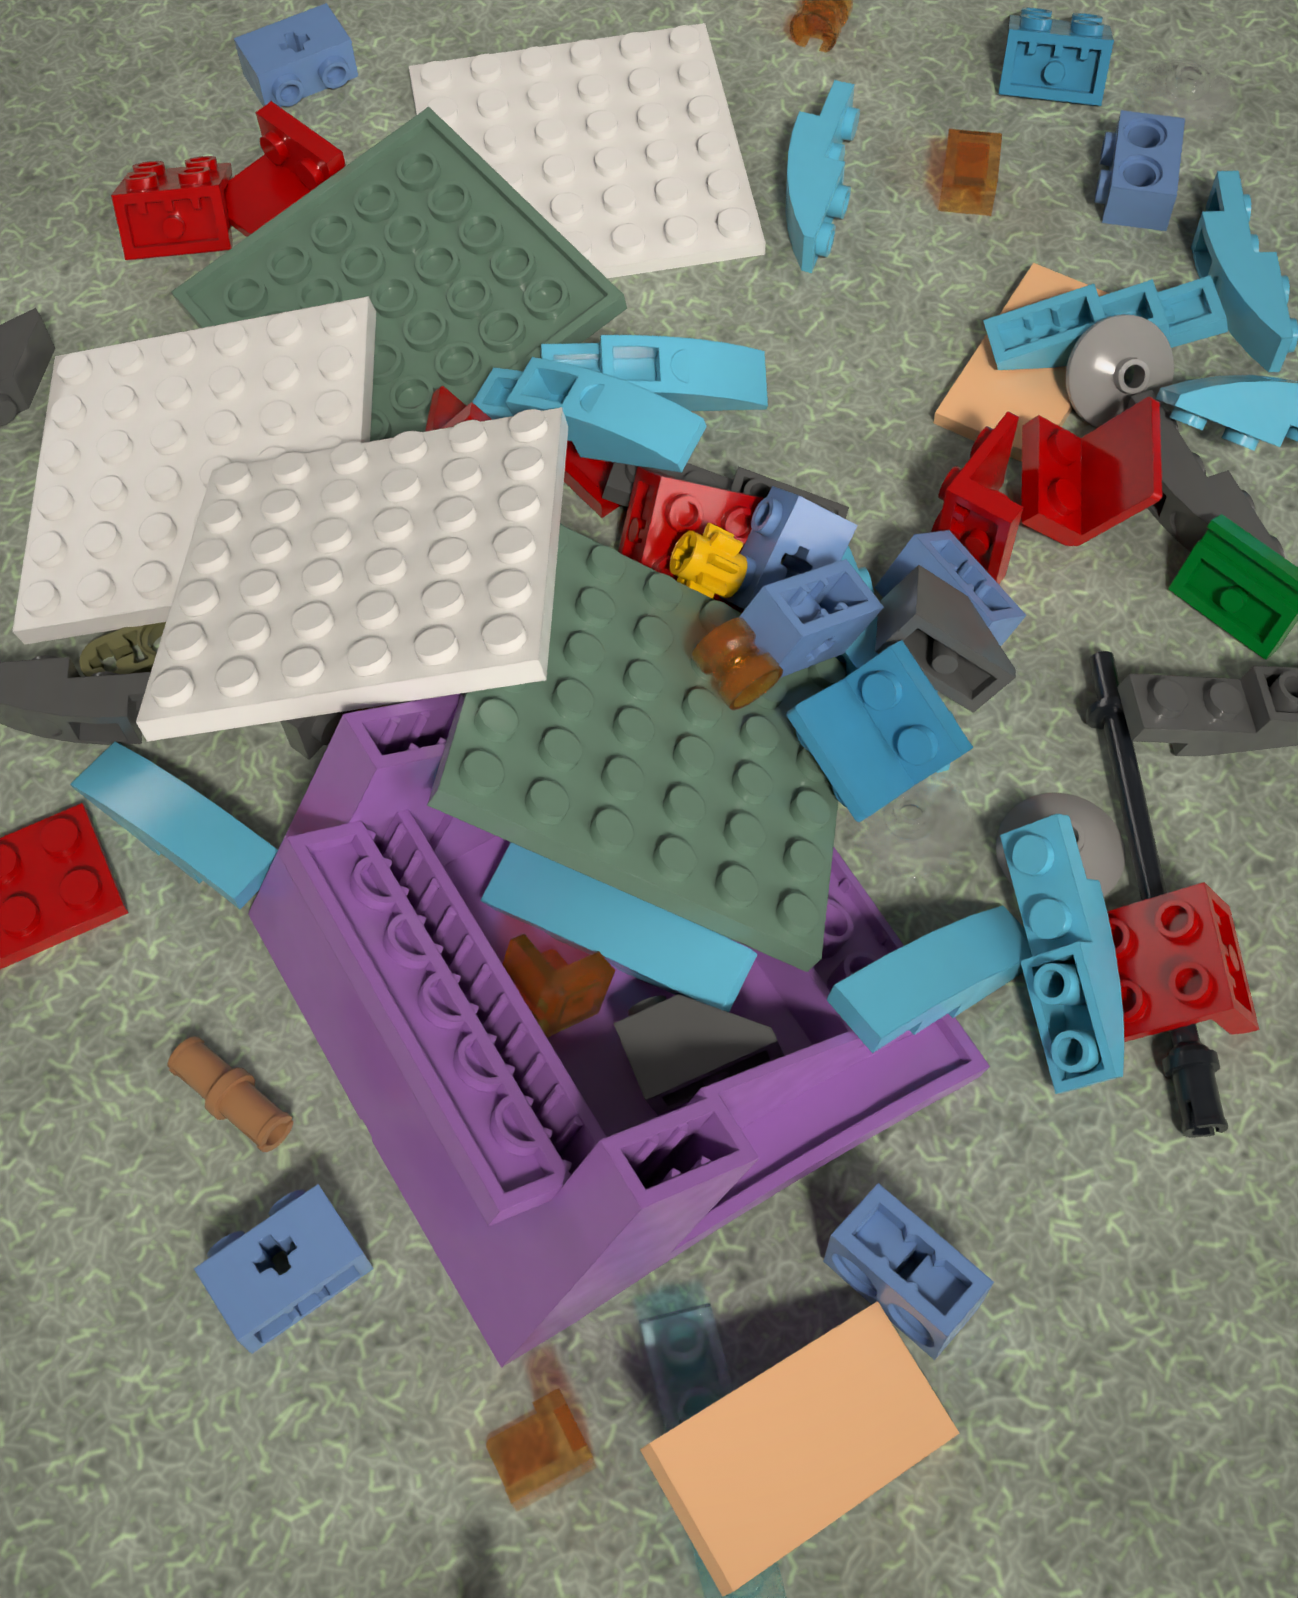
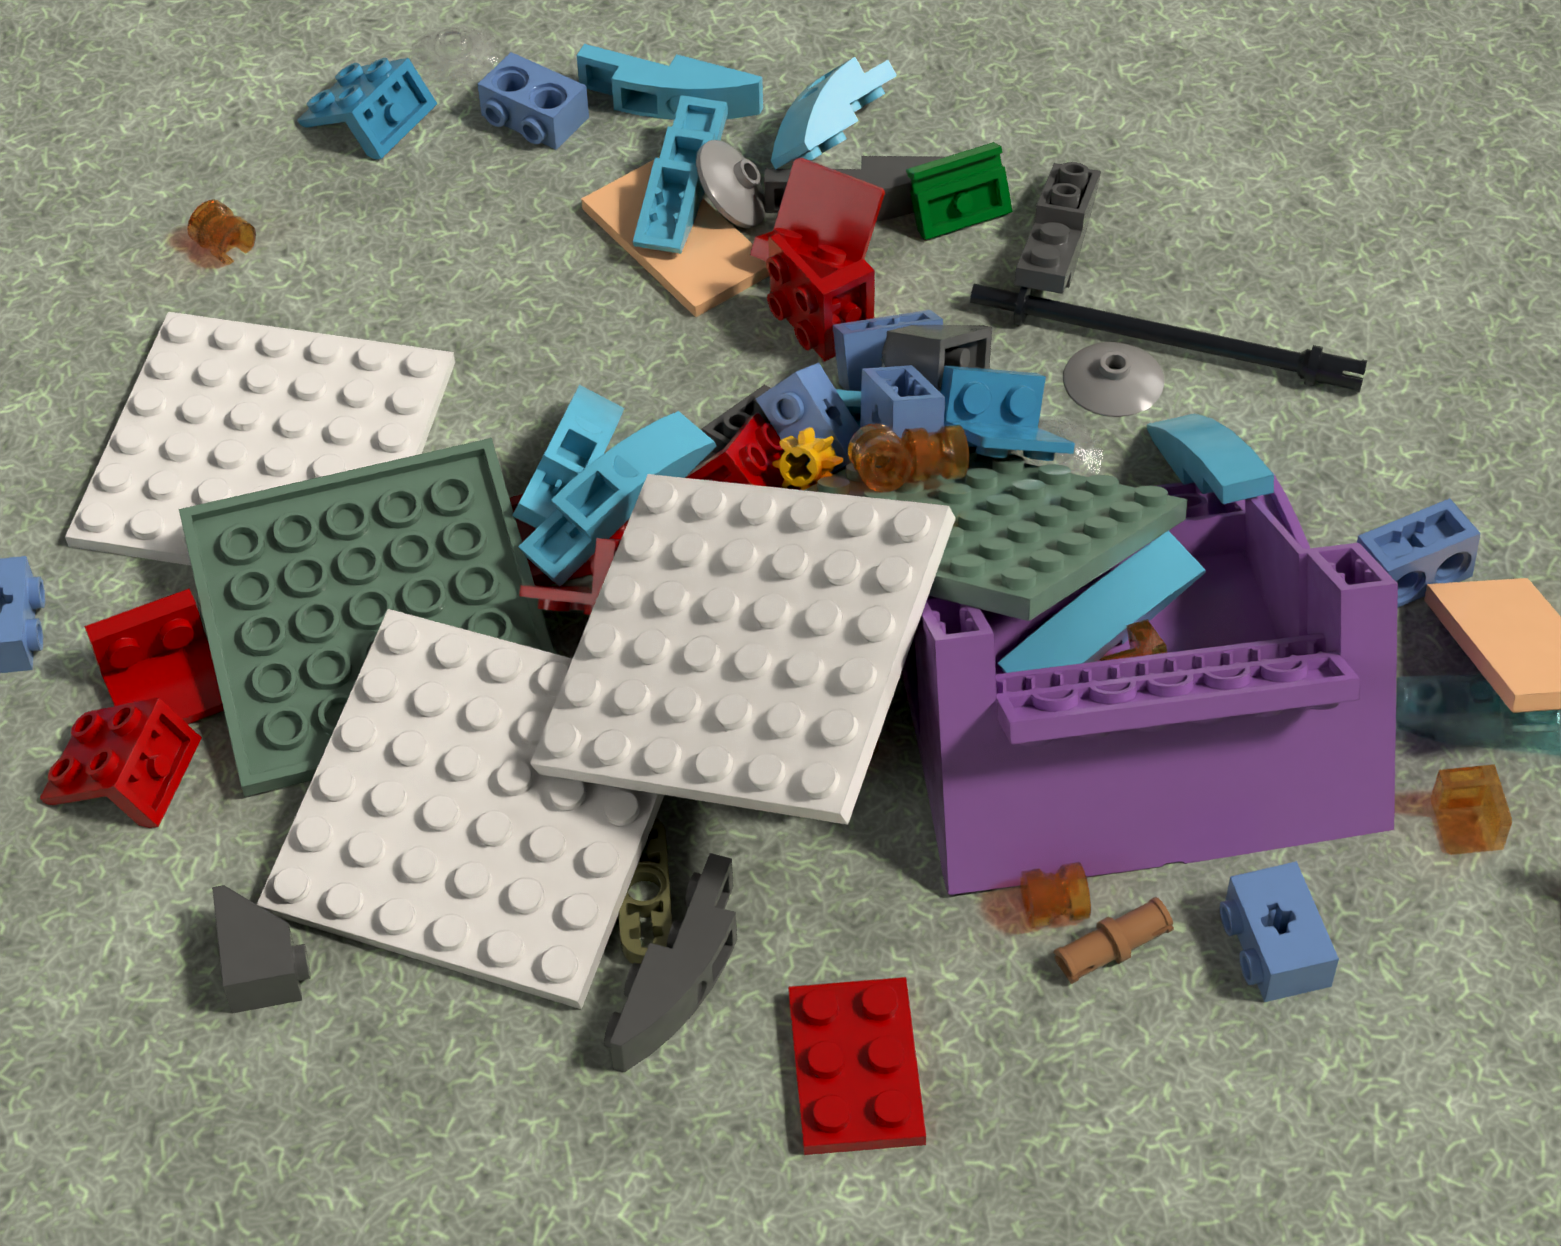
camera: 70 degrees left, 10 degrees down
(178, 823) = (844, 913): medium azure slope -> none
(262, 1009) = (1053, 895): none -> clear orange wheel
(687, 609) = (873, 447): none -> clear orange wheel
(689, 1045) = (1218, 602): dark grey slope -> none
(817, 175) = (410, 301): medium azure slope -> none
(970, 172) = (466, 199): clear orange brick -> none
(1073, 953) = (1212, 391): medium azure slope -> none
(1180, 964) = (1237, 350): red bracket -> none

